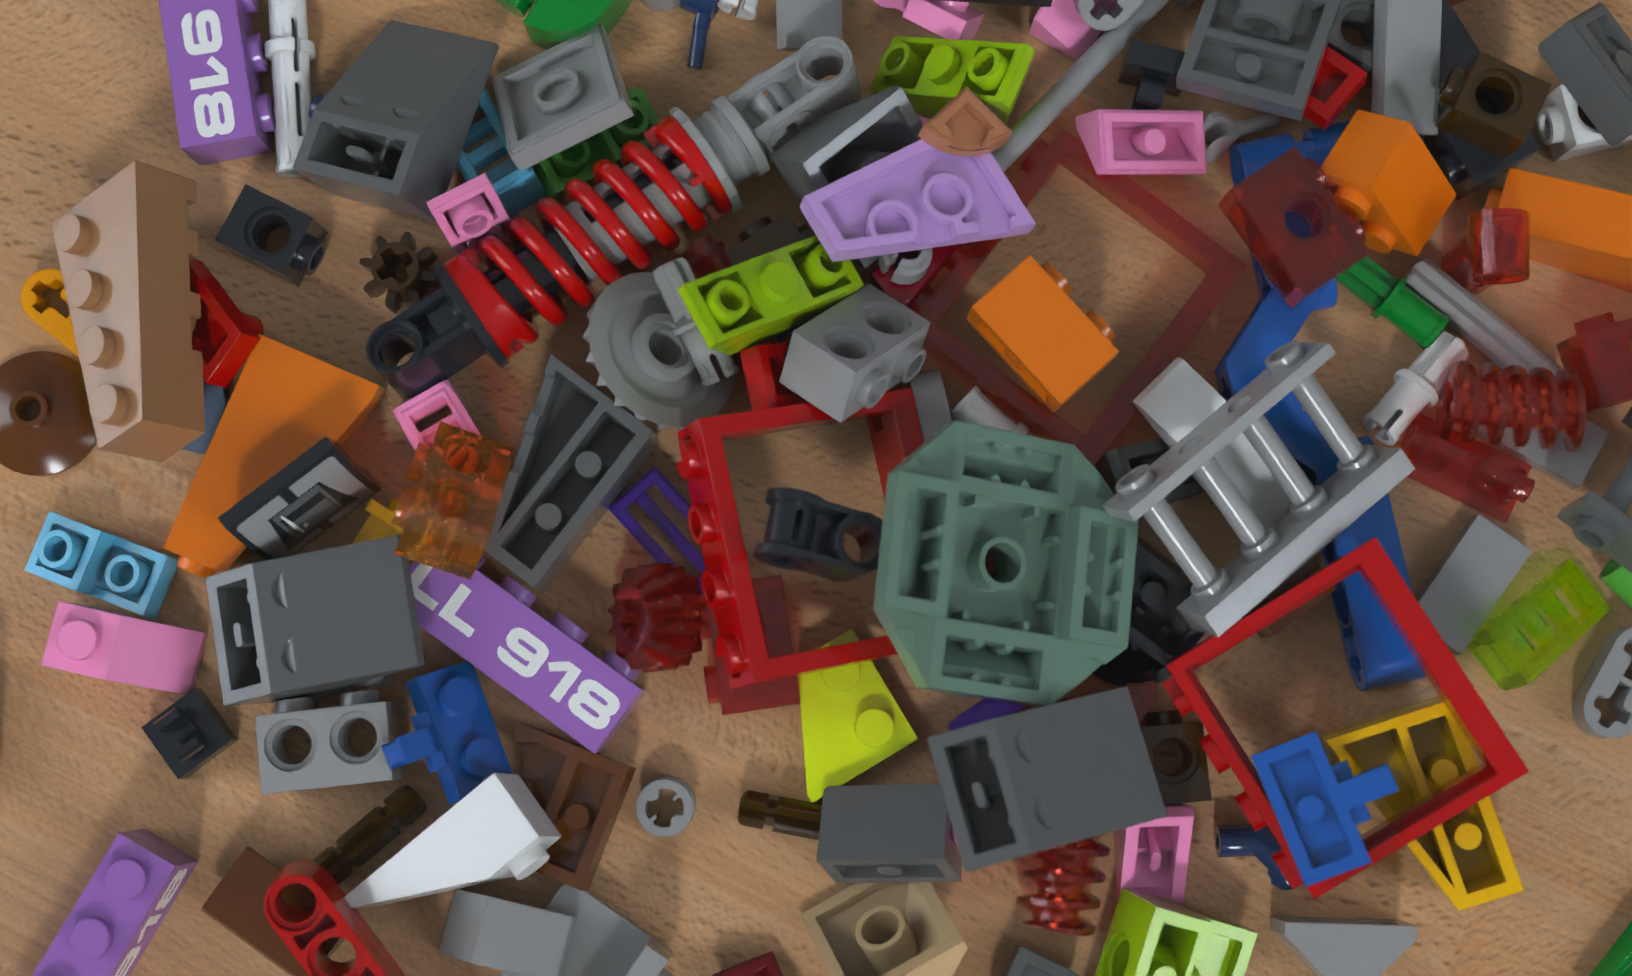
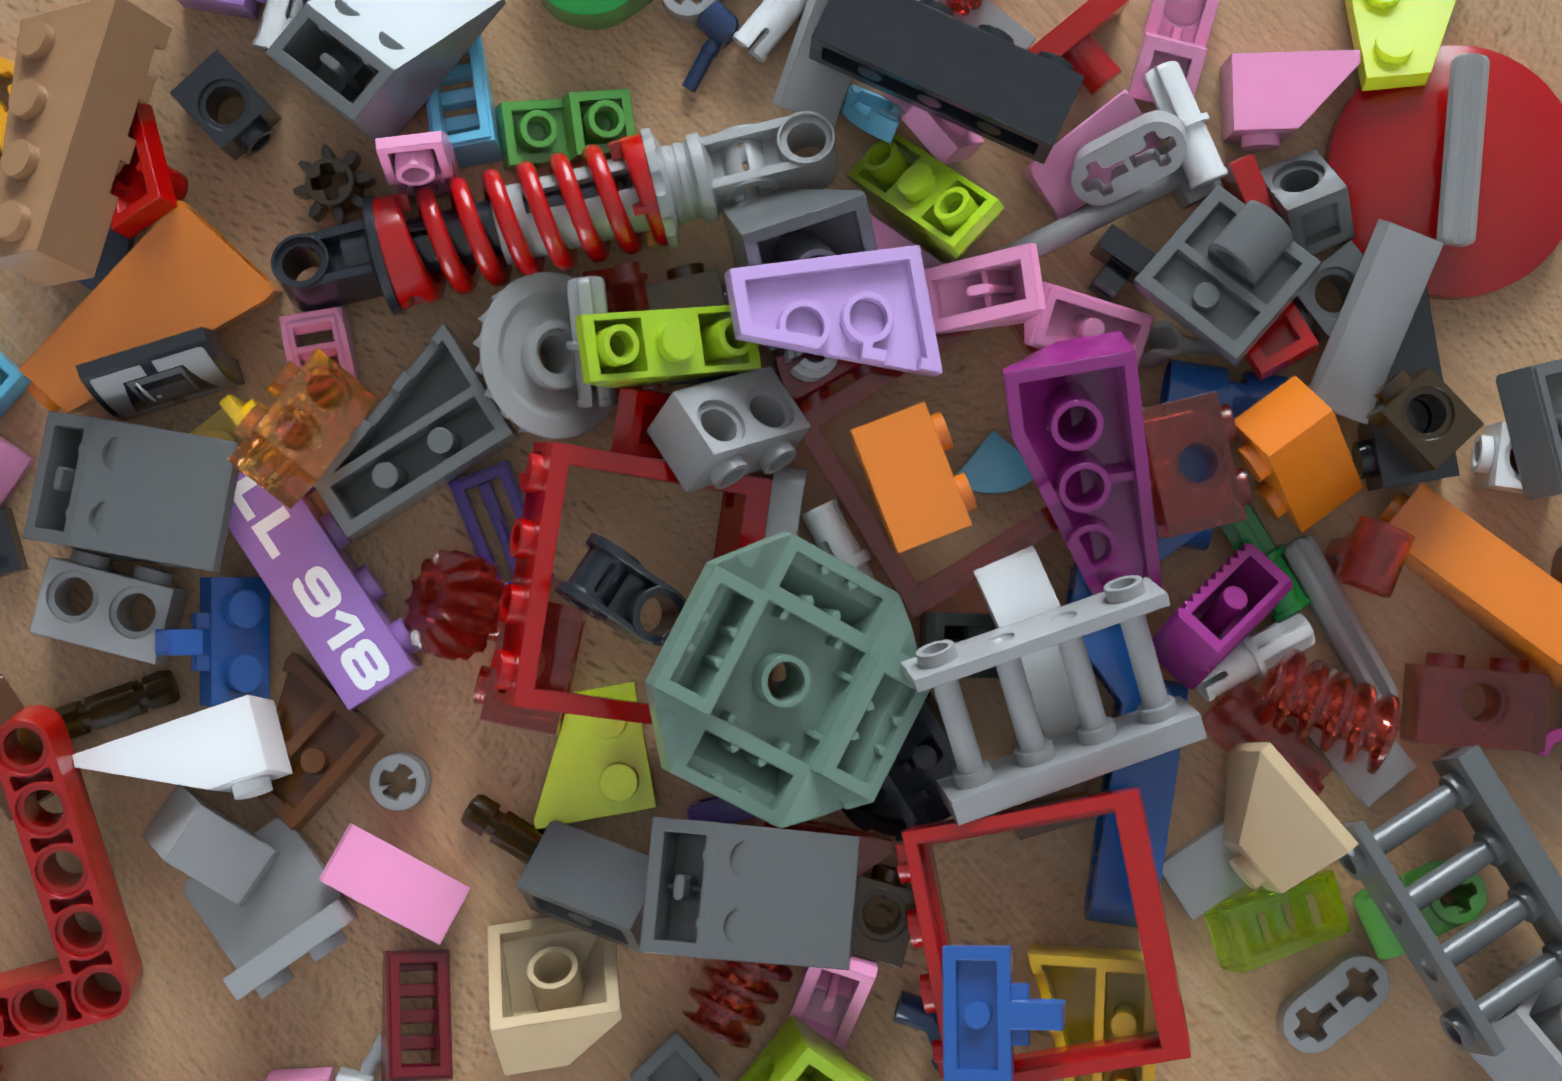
camera: 20 degrees right, 5 degrees up
(561, 97) = (546, 76): light grey plate -> none
(697, 906) = (394, 883): none -> bright pink slope
(872, 24) = (872, 112): none -> medium azure tile
(965, 127) = (911, 256): nougat tile -> none
(1052, 133) = (986, 290): none -> bright pink slope
(1115, 300) = (995, 467): none -> medium azure tile
(1197, 246) = (1086, 448): none -> magenta wedge
(1377, 355) = (1220, 615): none -> magenta brick
(1507, 523) = (1276, 821): none -> tan slope

